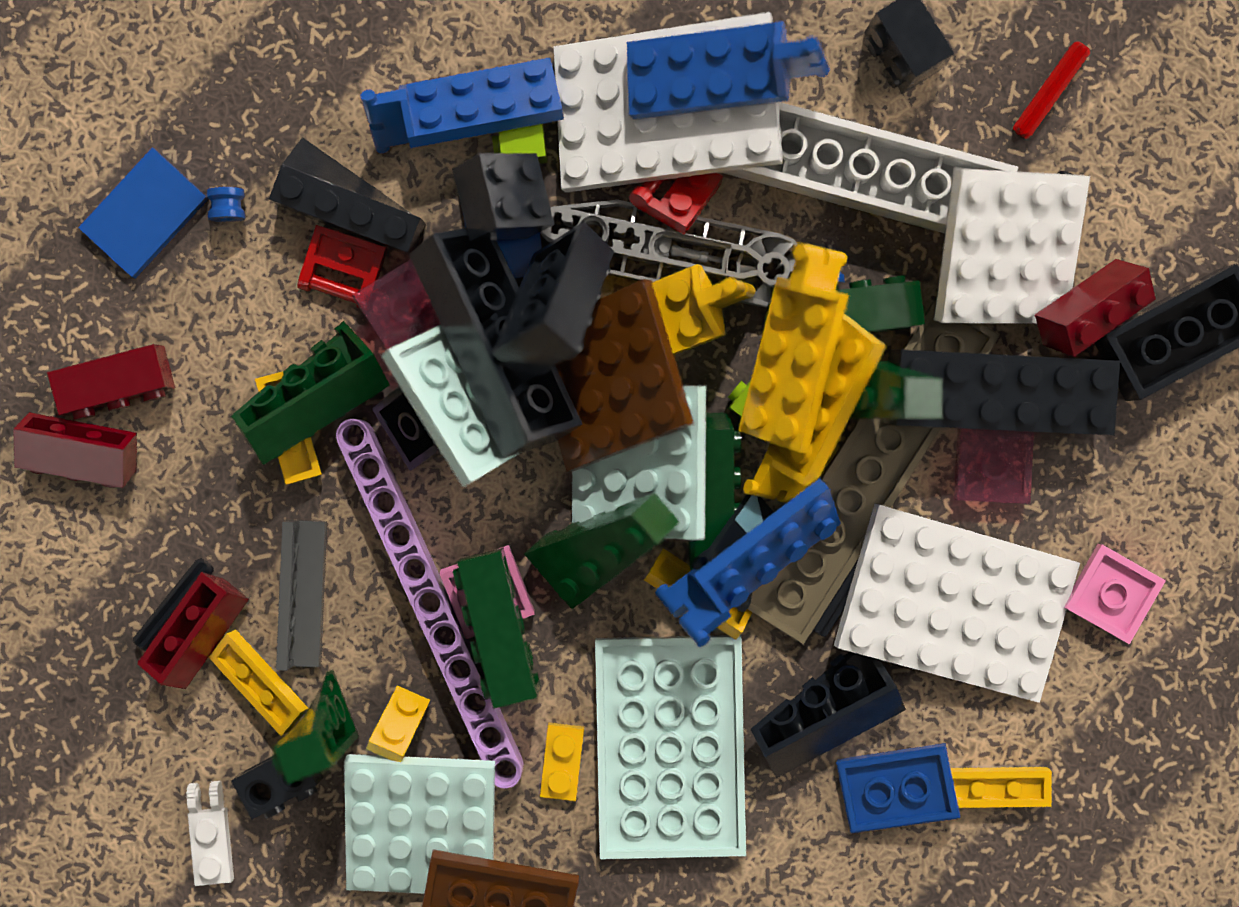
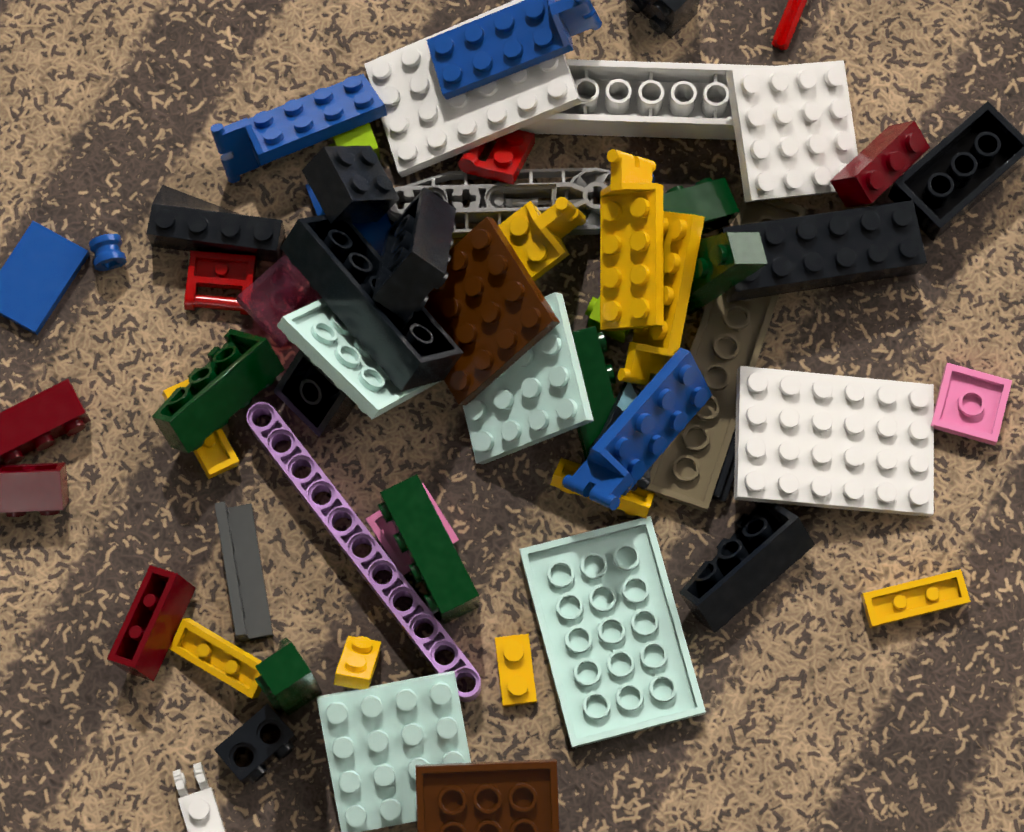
camera: 15 degrees left, 15 degrees down
(159, 617) = (111, 632): black axle -> none
(598, 549) = (501, 462): dark green wedge -> none
(898, 788) = (827, 618): blue tile -> none
(994, 466) = (833, 319): clear pink plate -> none

